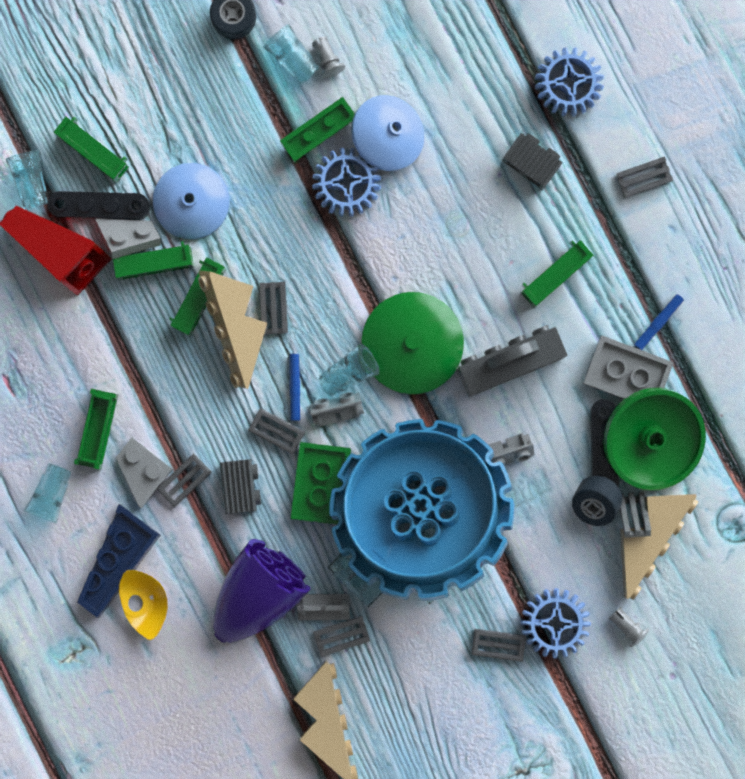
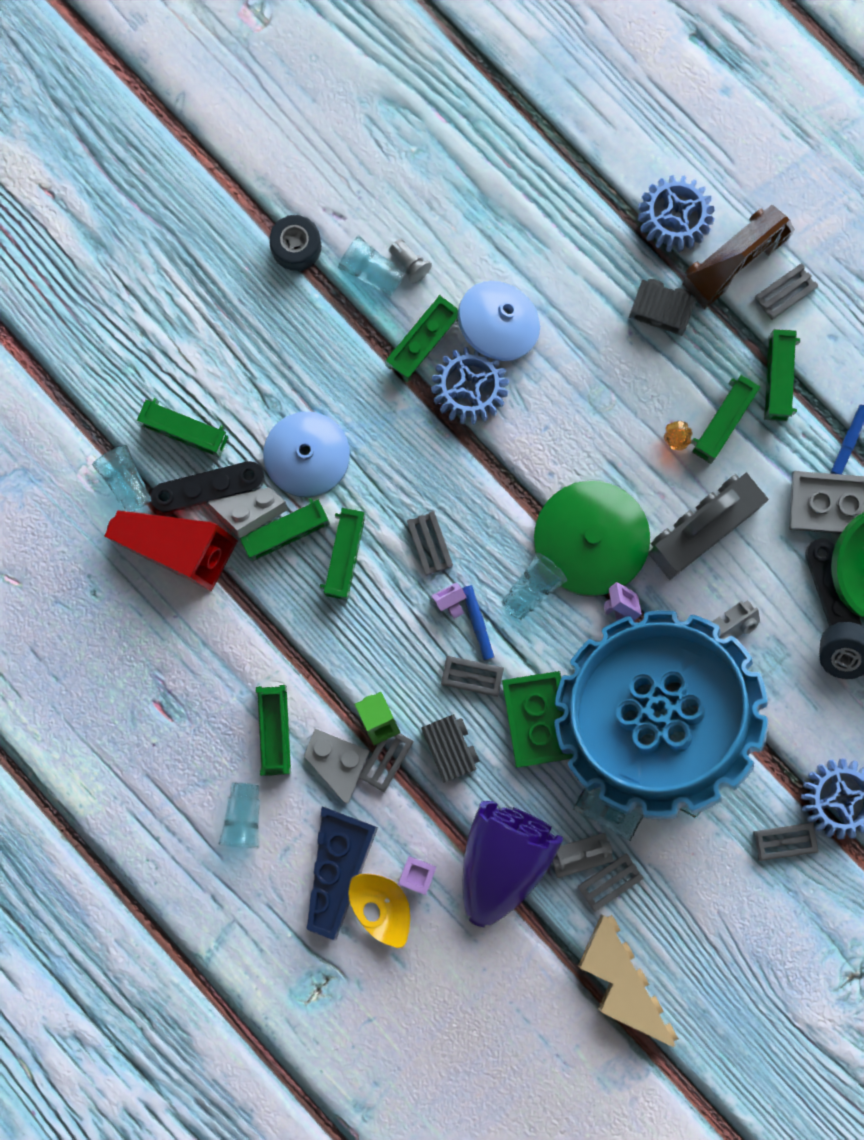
camera: 15 degrees left, 5 degrees down
(181, 584) = (417, 875): none -> lavender tile
(185, 444) = (377, 718): none -> bright green brick
(238, 333) = (399, 579): tan slope -> none
(276, 360) = (450, 599): none -> lavender tile
(347, 404) = (518, 637): light grey hinge -> none
(421, 405) = (623, 602): none -> lavender tile
(512, 276) = (678, 435): none -> clear orange plate
(583, 147) = (713, 276): none -> reddish brown wedge
(615, 249) = (780, 375): none -> green container

